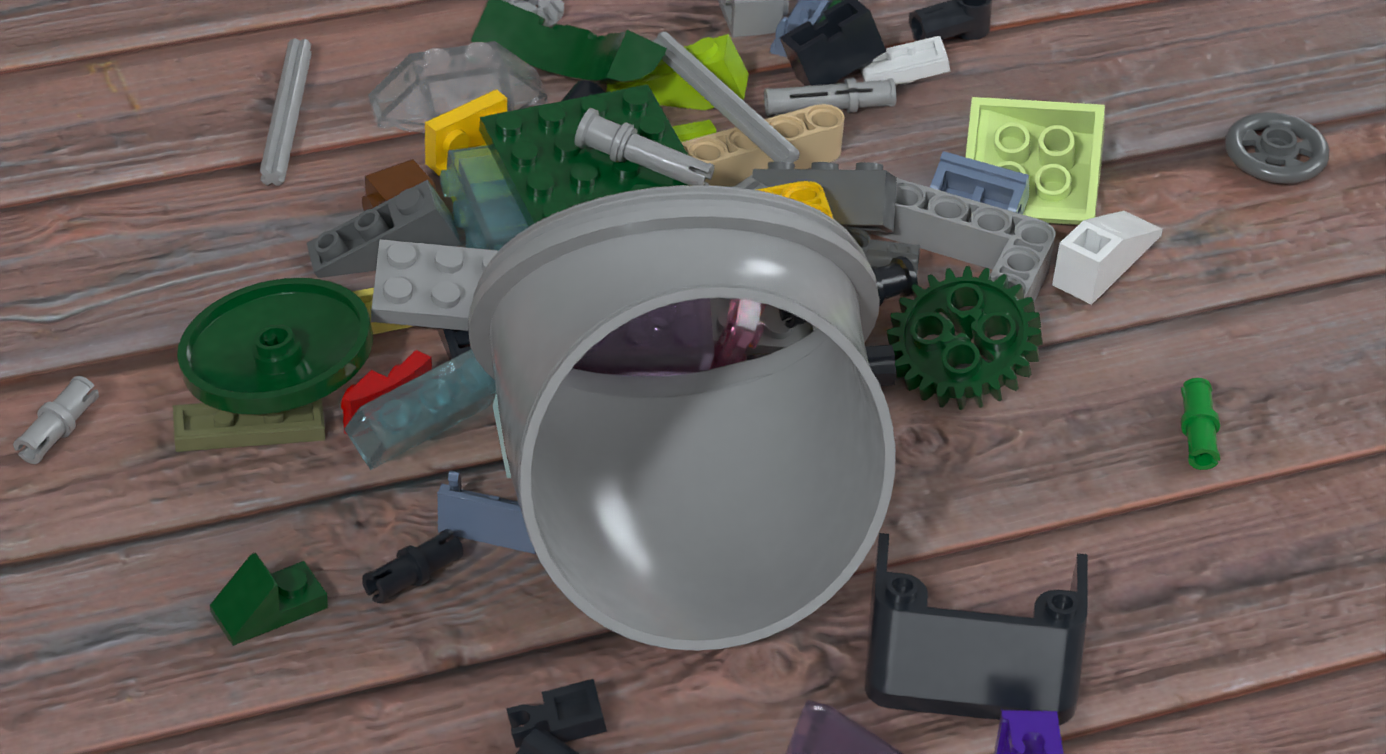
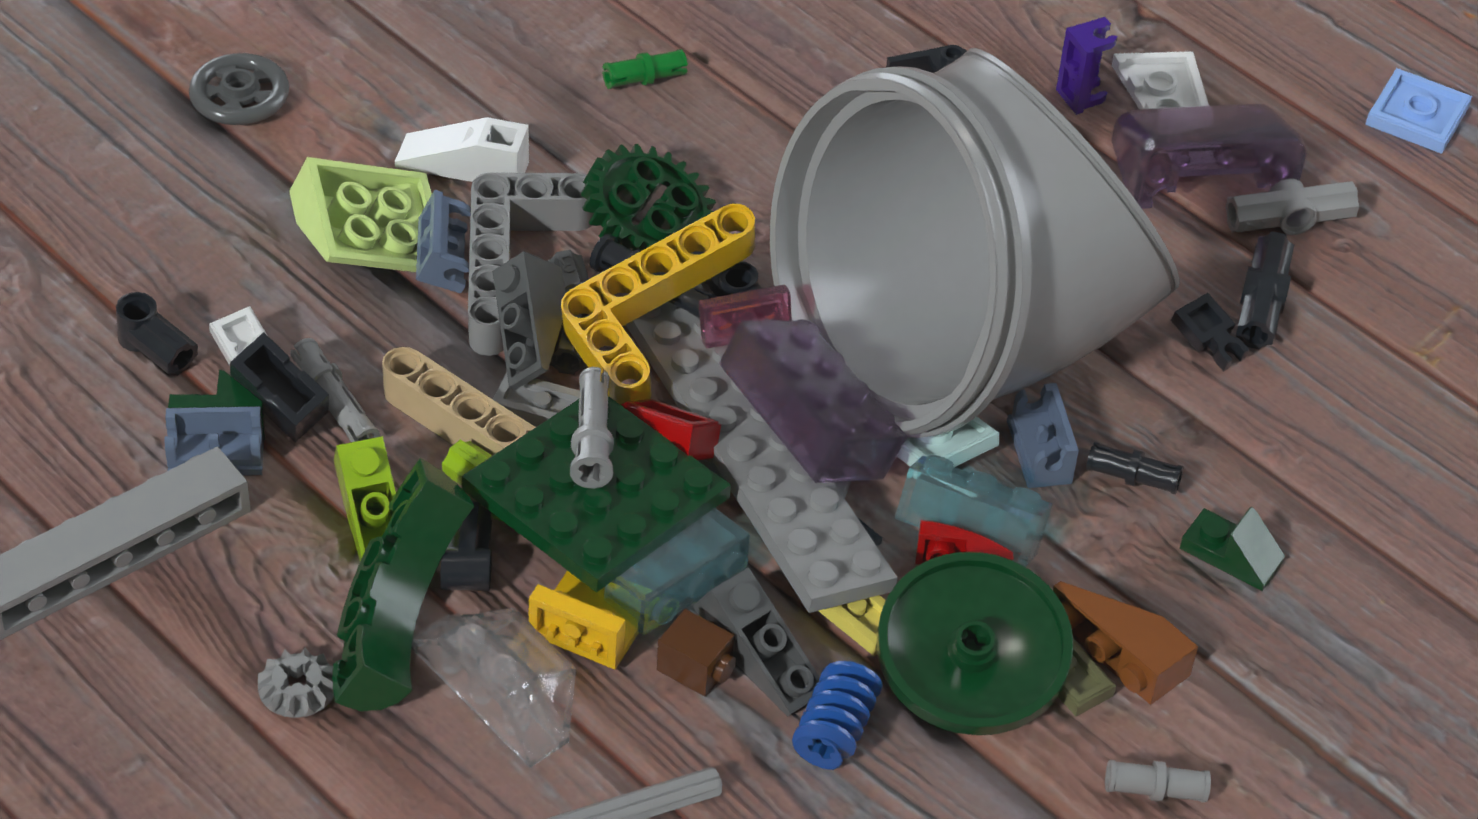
camera: 115 degrees left, 5 degrees up
(211, 460) = (1129, 641): none -> dark orange slope
(273, 245) = (836, 714): none -> blue piece
(726, 101) = (438, 424): light grey axle -> none

